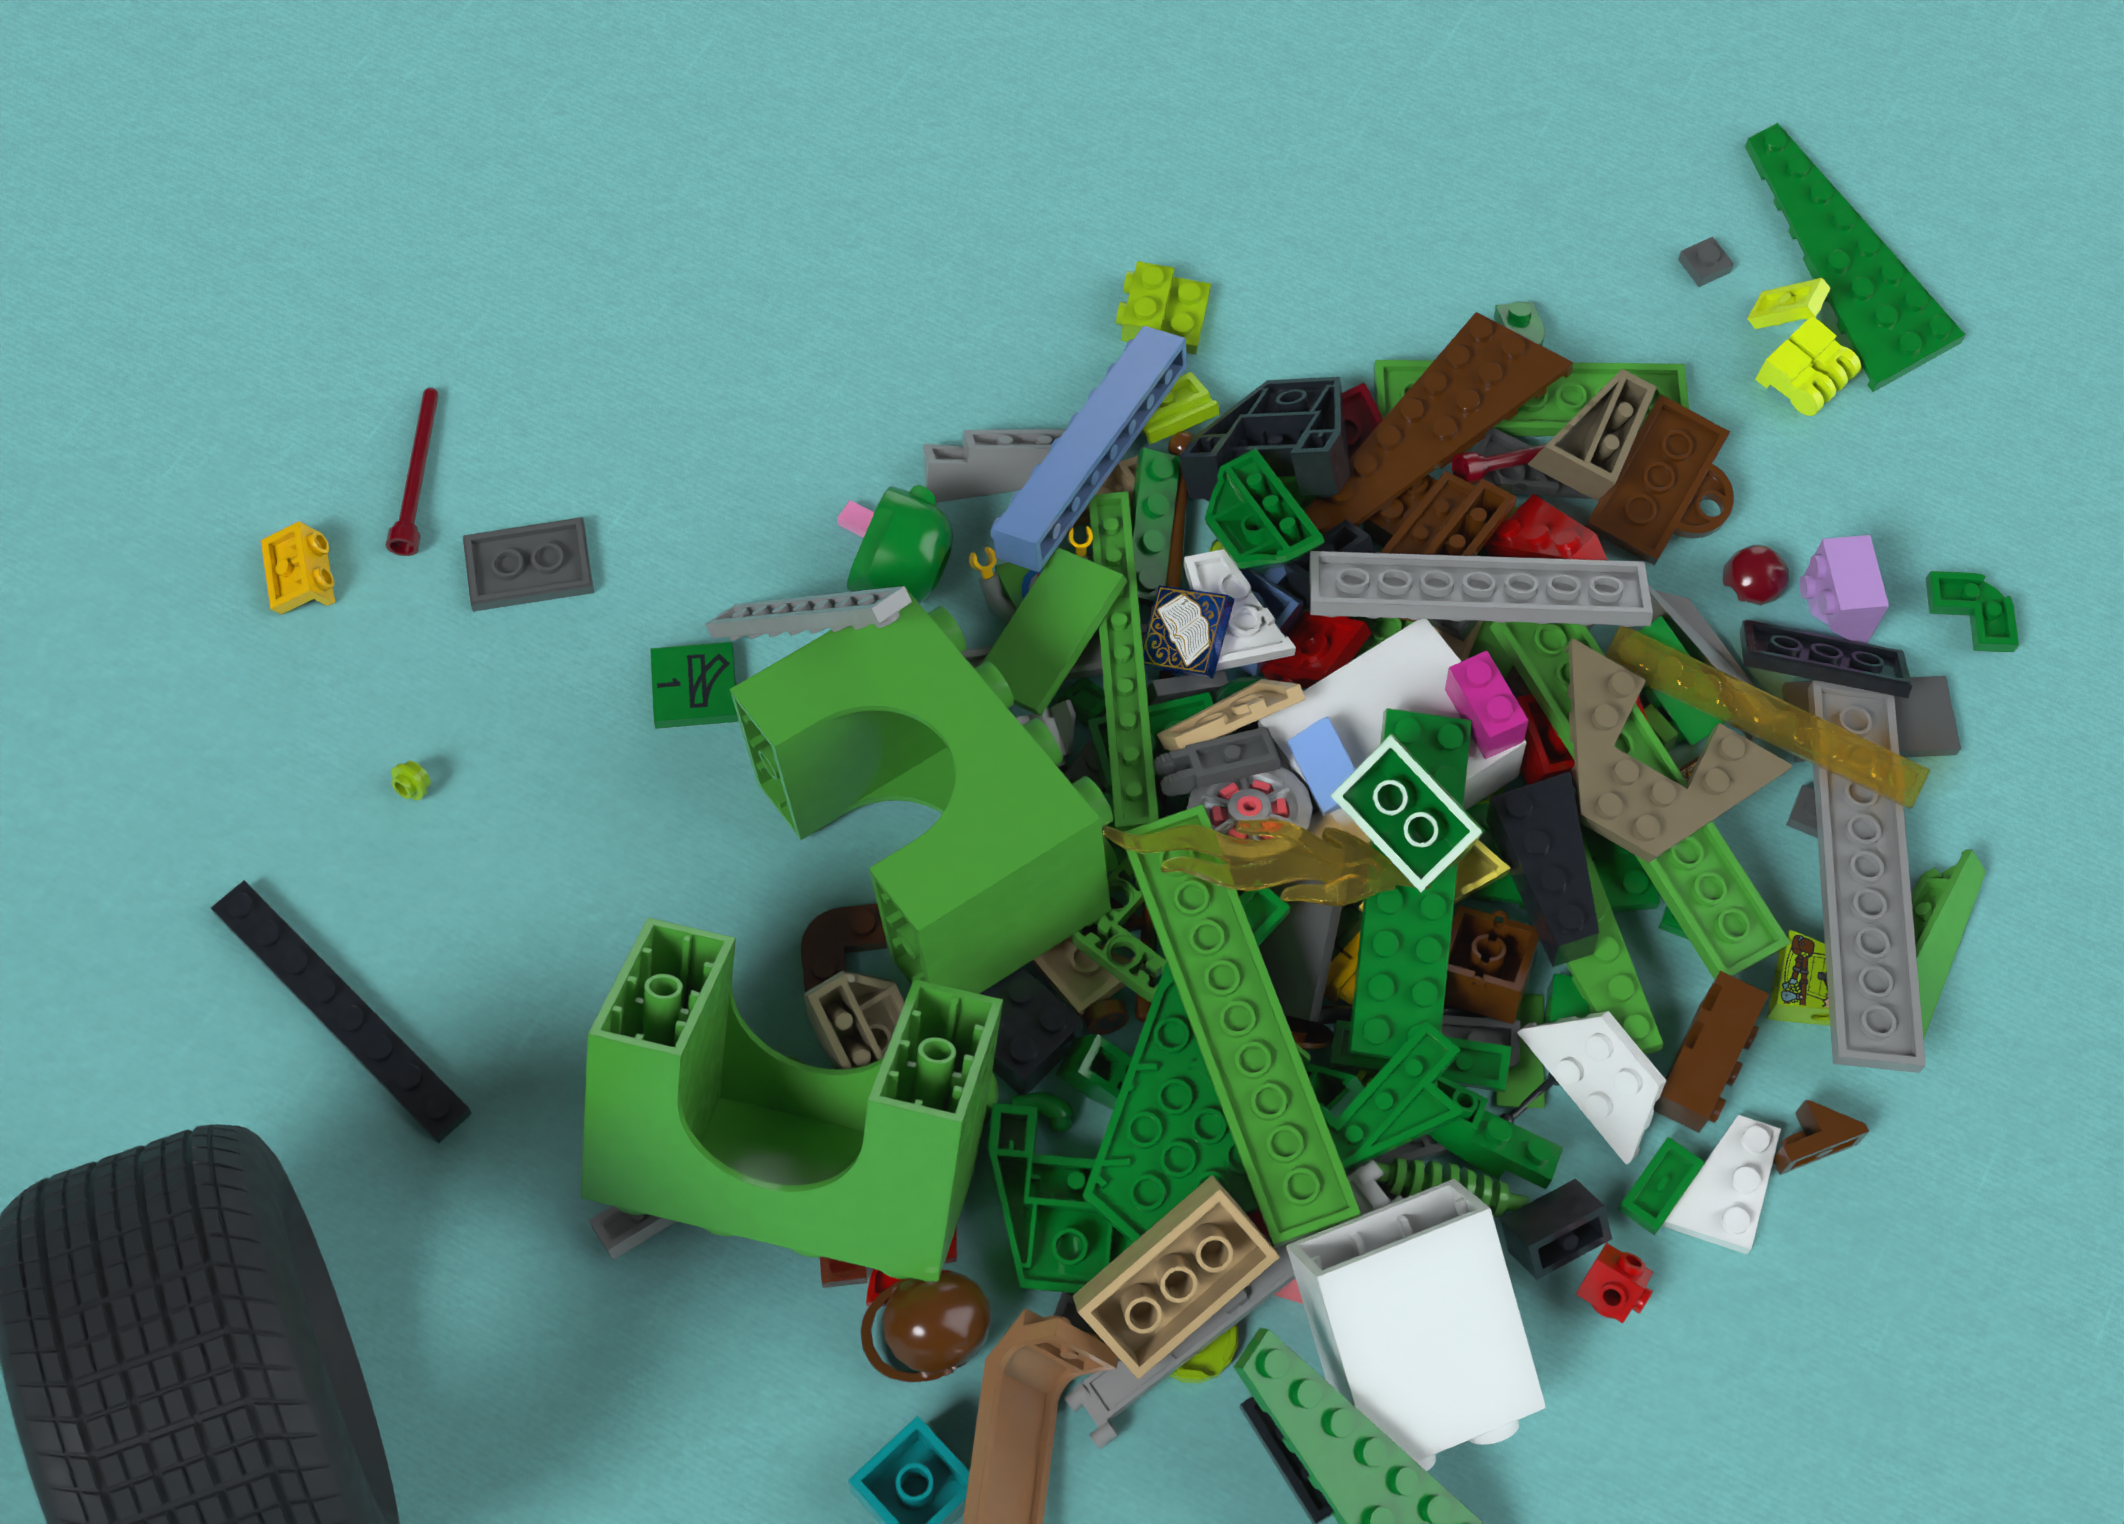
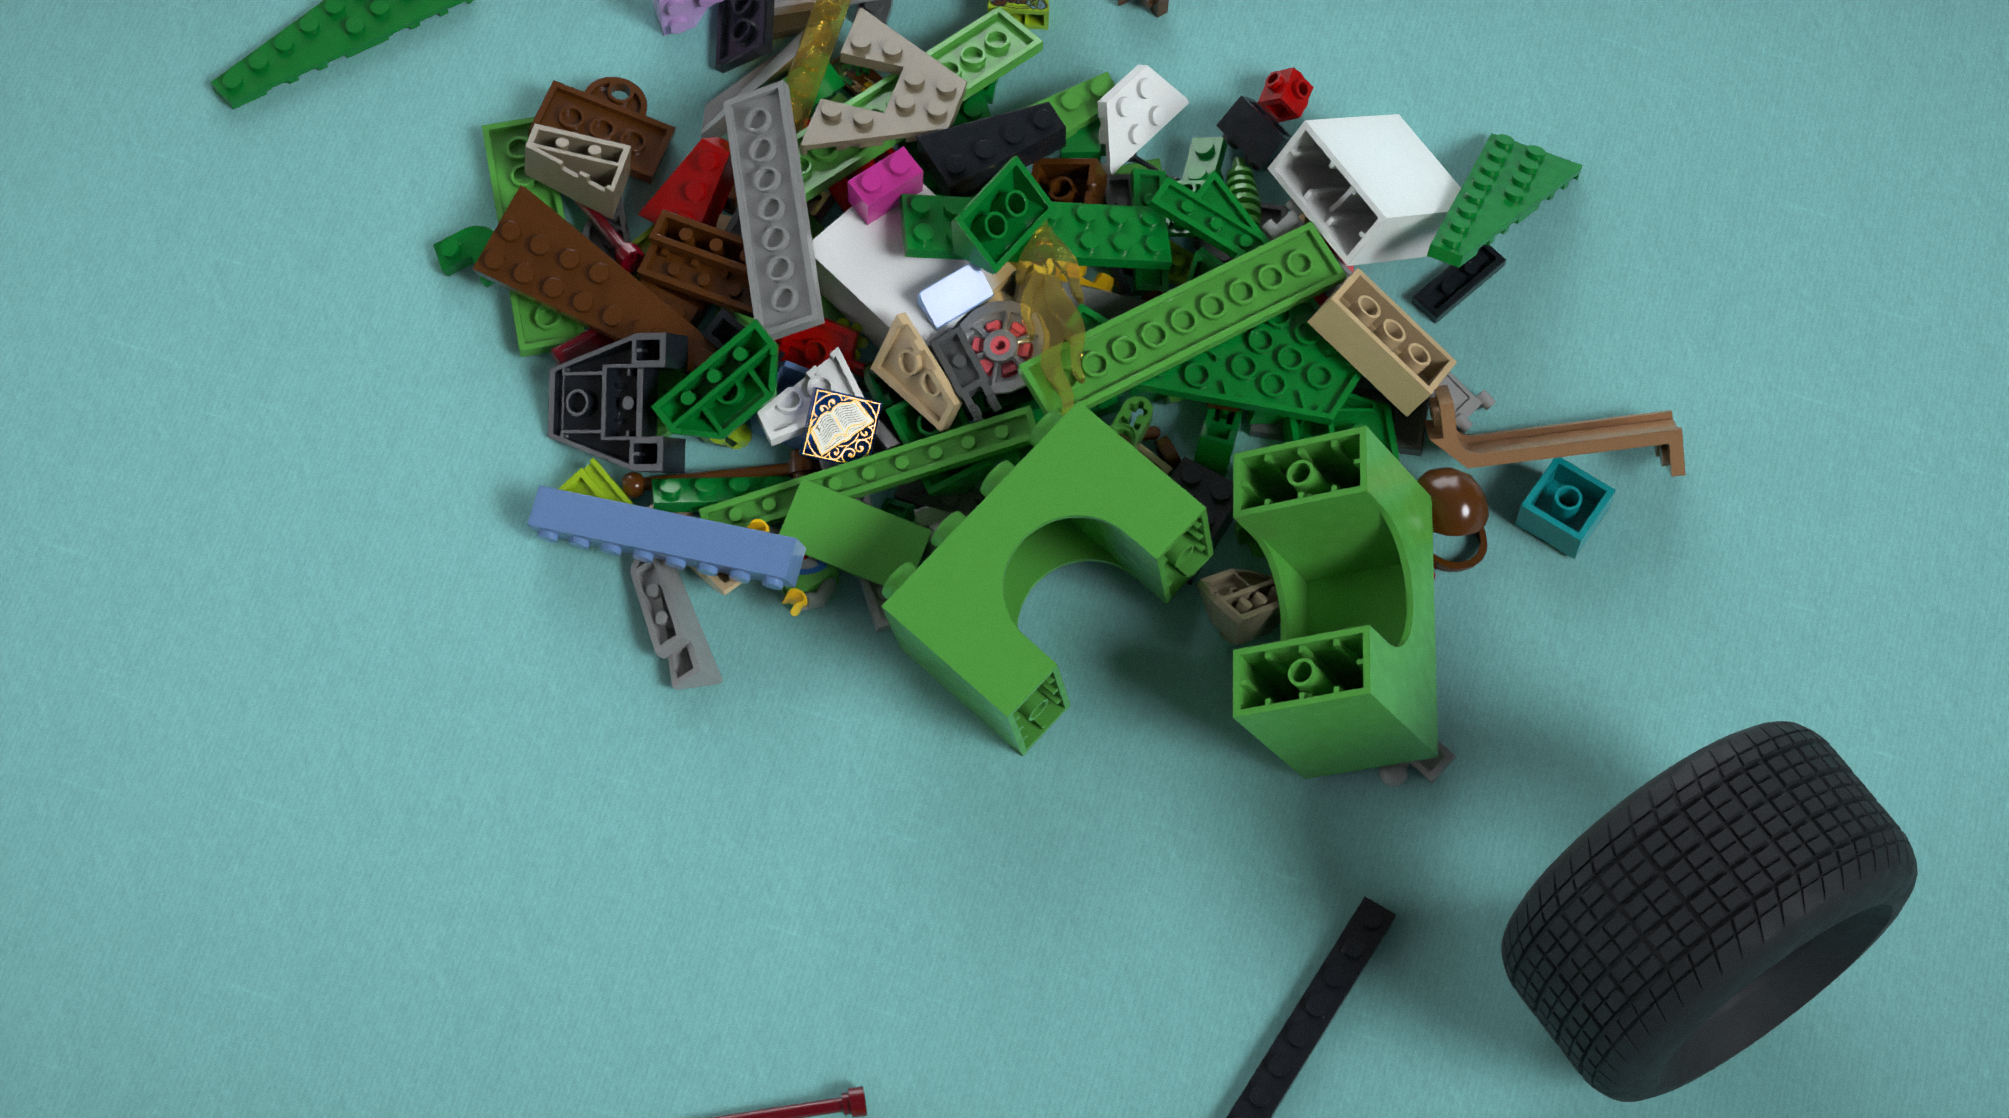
camera: 100 degrees left, 0 degrees up
(410, 780) = (1092, 1024): lime plate -> none
(528, 564) = (855, 992): dark grey tile -> none
(693, 685) = (944, 824): green tile -> none
(811, 613) = (911, 688): light grey plate -> none
(837, 933) = (1154, 668): reddish brown plate -> none
(855, 518) = (754, 730): bright pink piece -> none
(903, 544) = (795, 673): green piece -> none
(1163, 304) = (489, 526): lime plate -> none
(1661, 1185) = (1201, 77): green plate -> none
(1705, 261) = (365, 124): dark grey plate -> none
(1710, 1052) = (1088, 48): reddish brown wedge -> none
(1730, 1188) = (1193, 38): white wing -> none
(1756, 574) = (671, 63): dark red hair -> none
(1789, 303) = (412, 53): neon yellow plate -> none
(1809, 367) = (465, 40): neon yellow legs -> none

